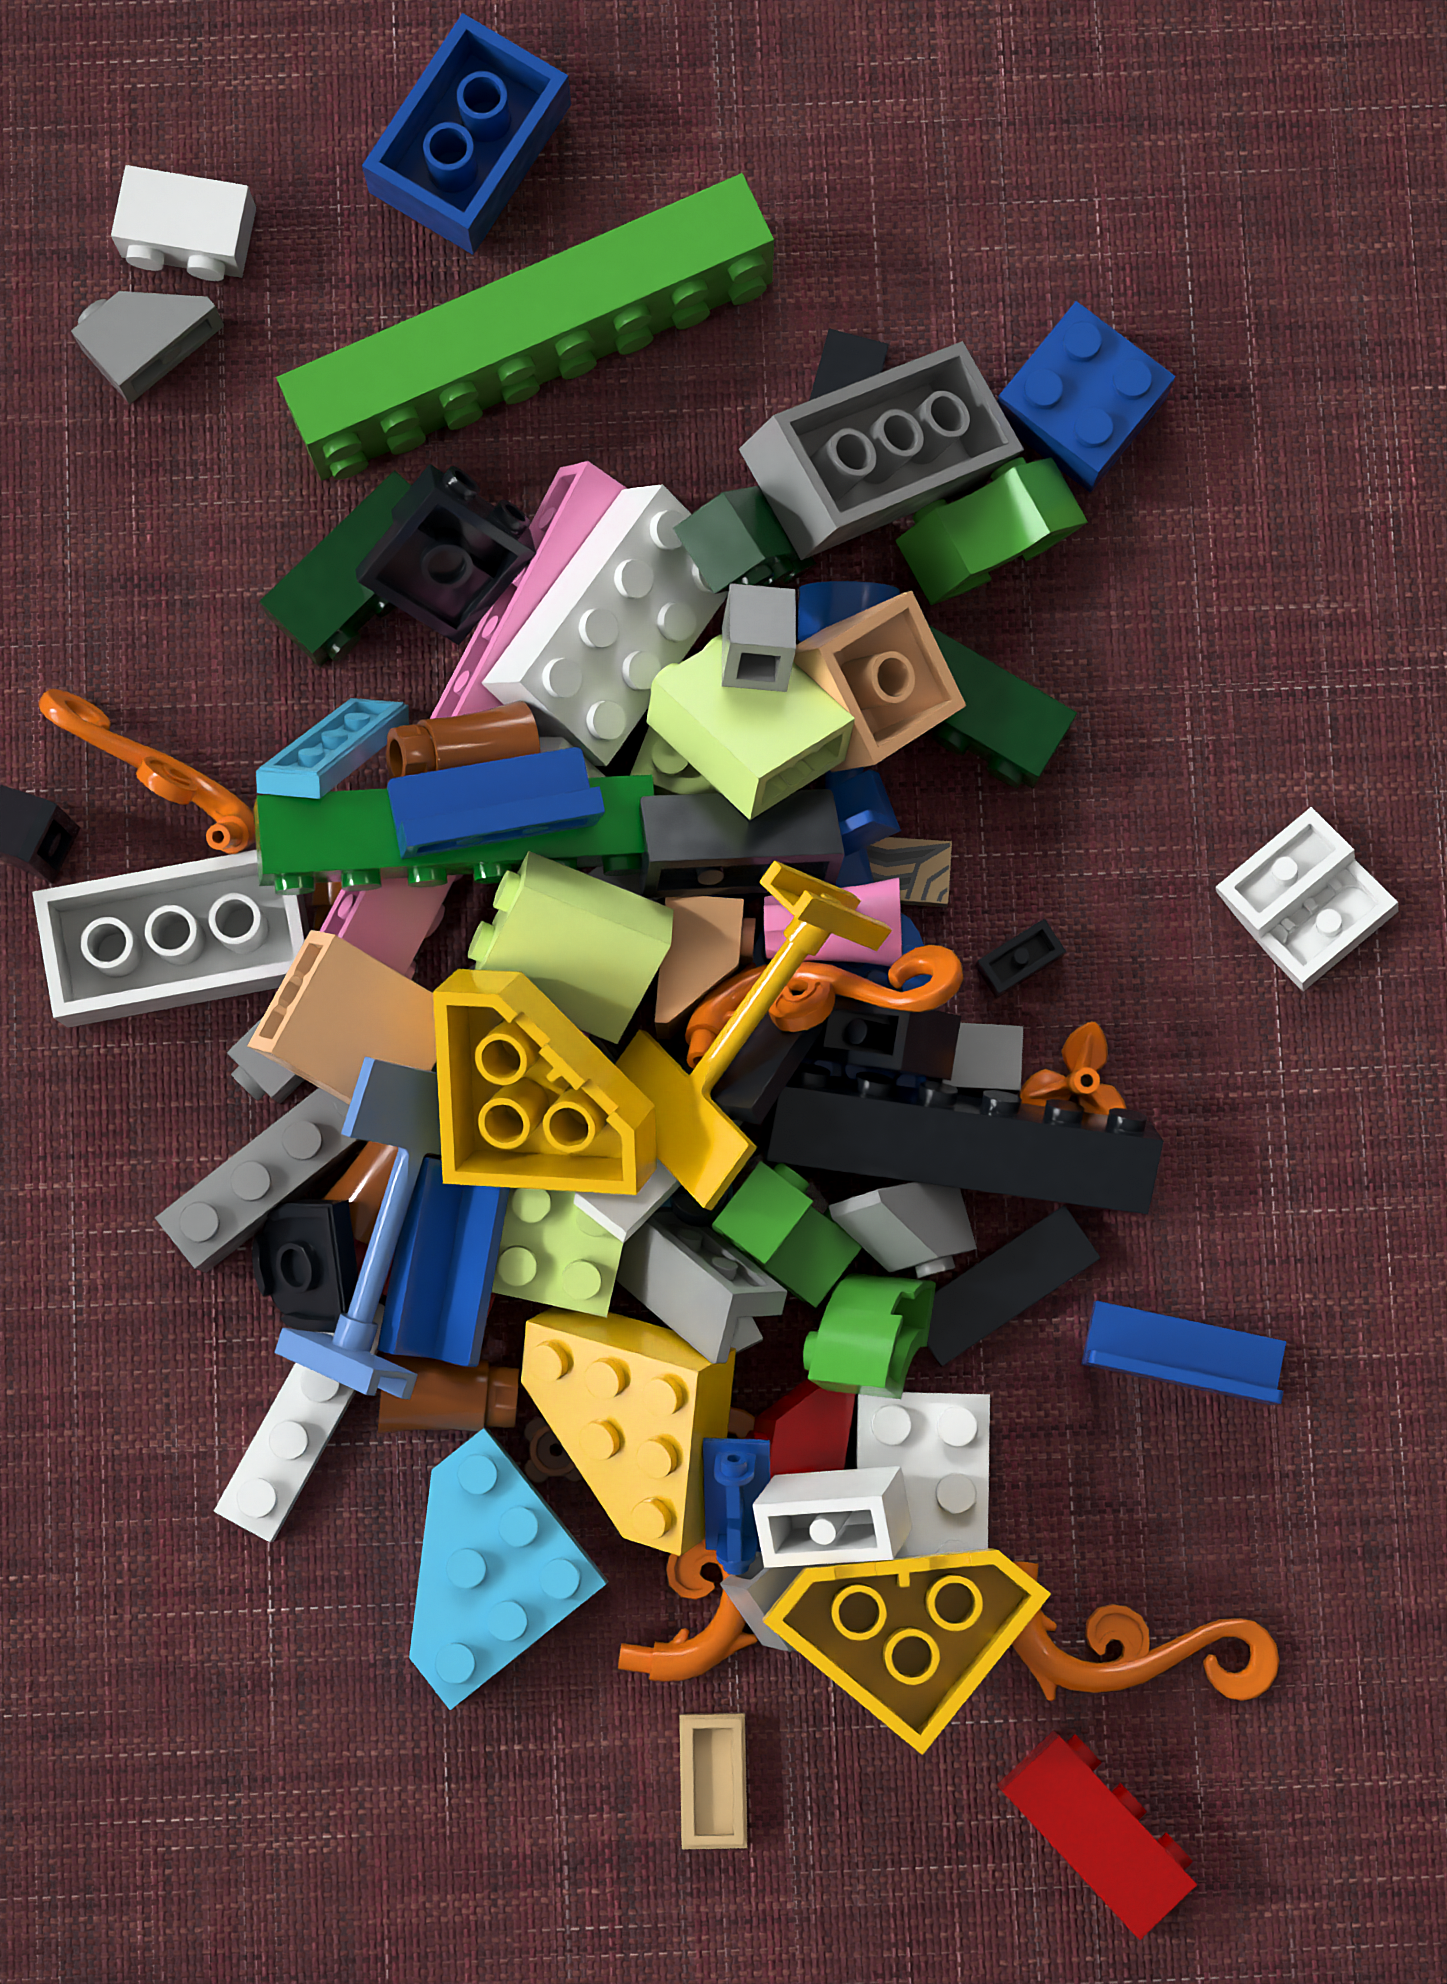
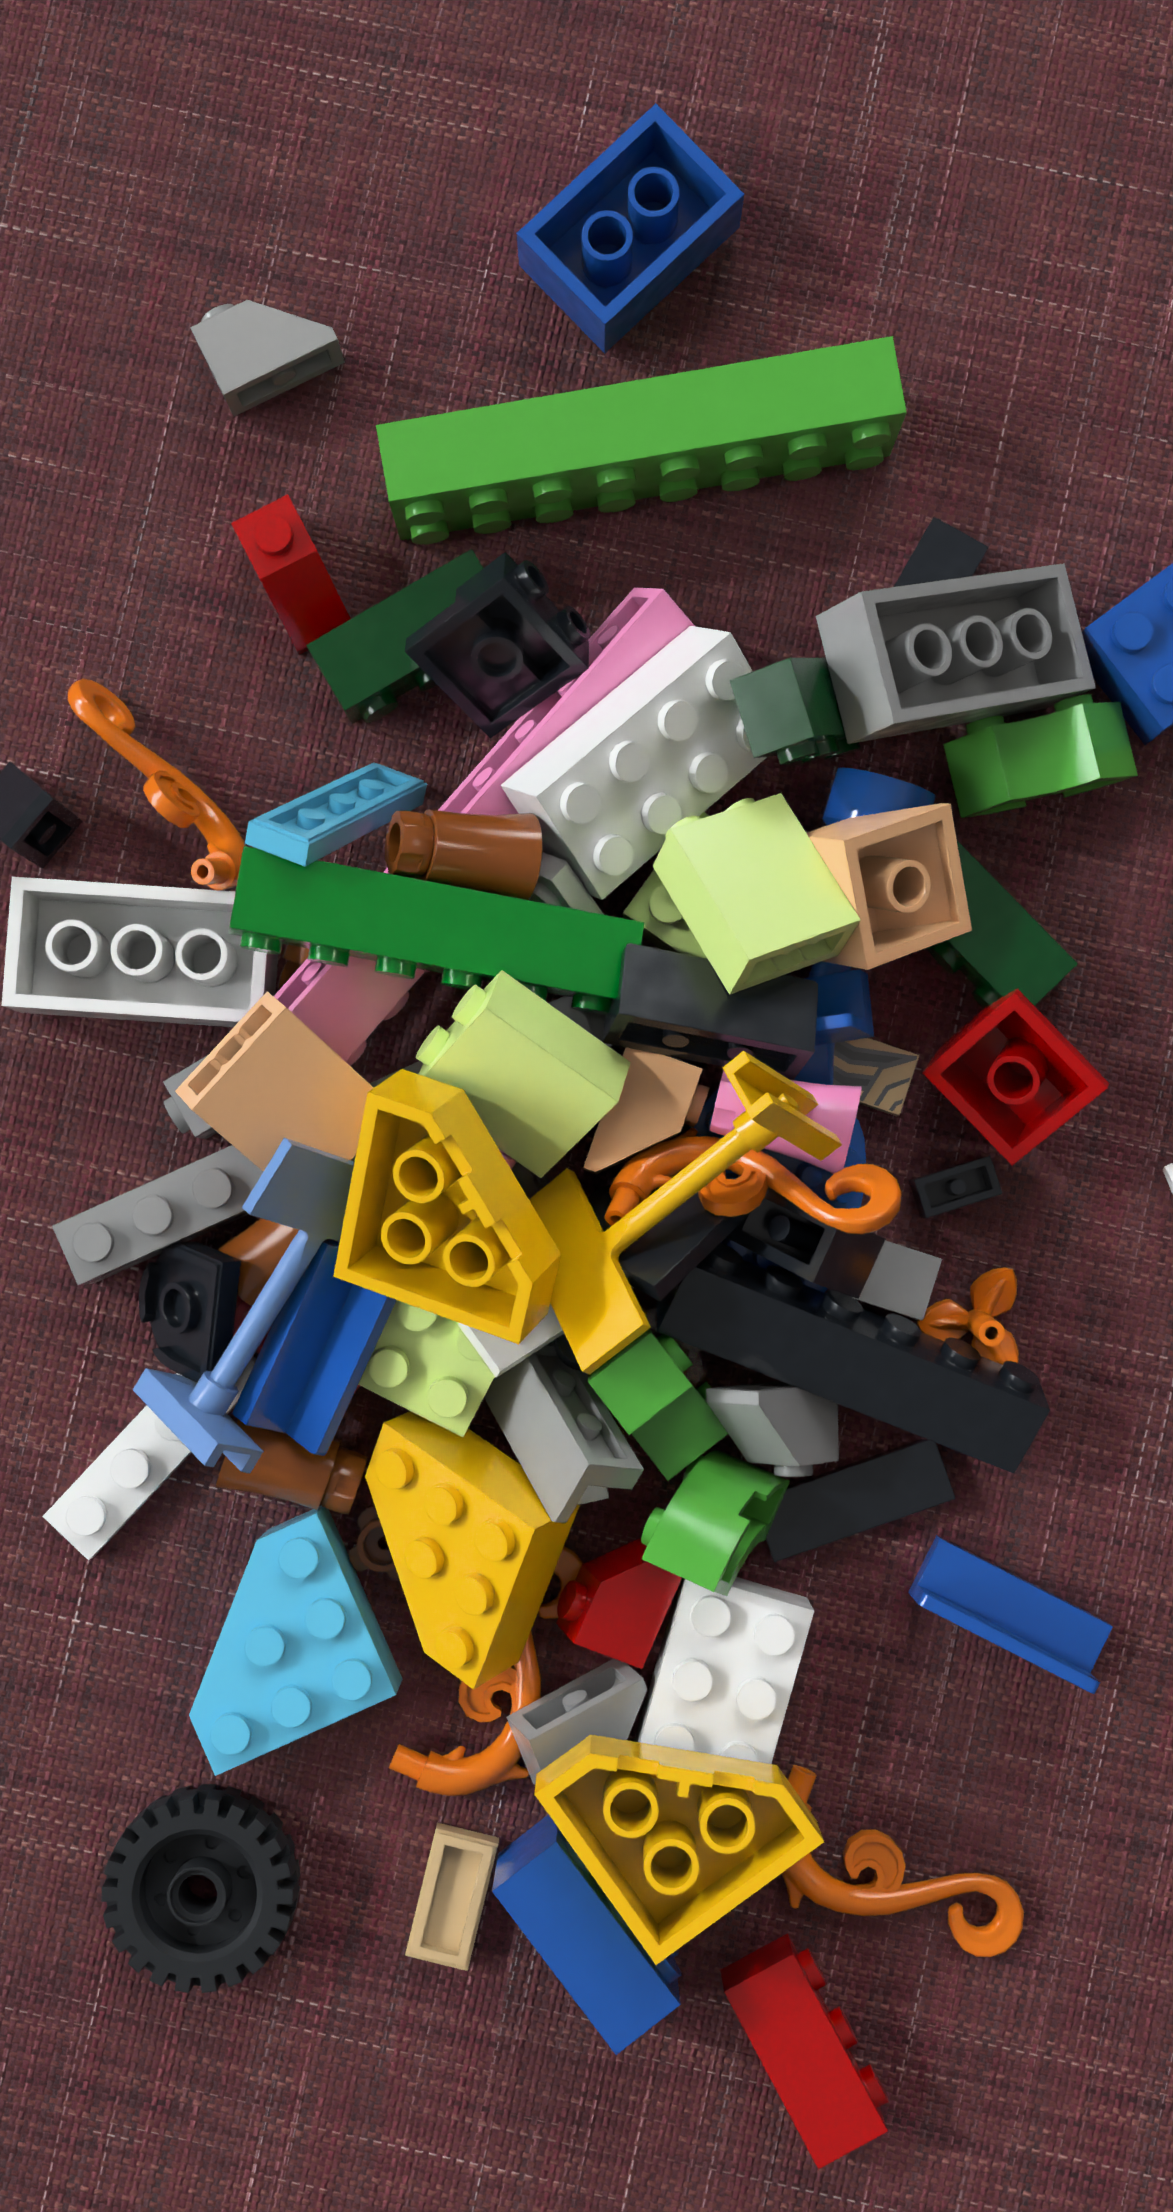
camera: 20 degrees right, 5 degrees up
(183, 223) = (329, 248): white brick -> none
(225, 537) = (291, 571): none -> red slope
(454, 1887) = (191, 1936): none -> black wheel
(493, 802) = (478, 912): blue panel -> none
(733, 1480) = (542, 1651): blue hinge -> none
(758, 637) = (786, 813): light grey brick -> none
(832, 1517) = (630, 1700): white brick -> none
(854, 1762) = (583, 1936): none -> blue brick
(1044, 833) = (1014, 1075): none -> red slope

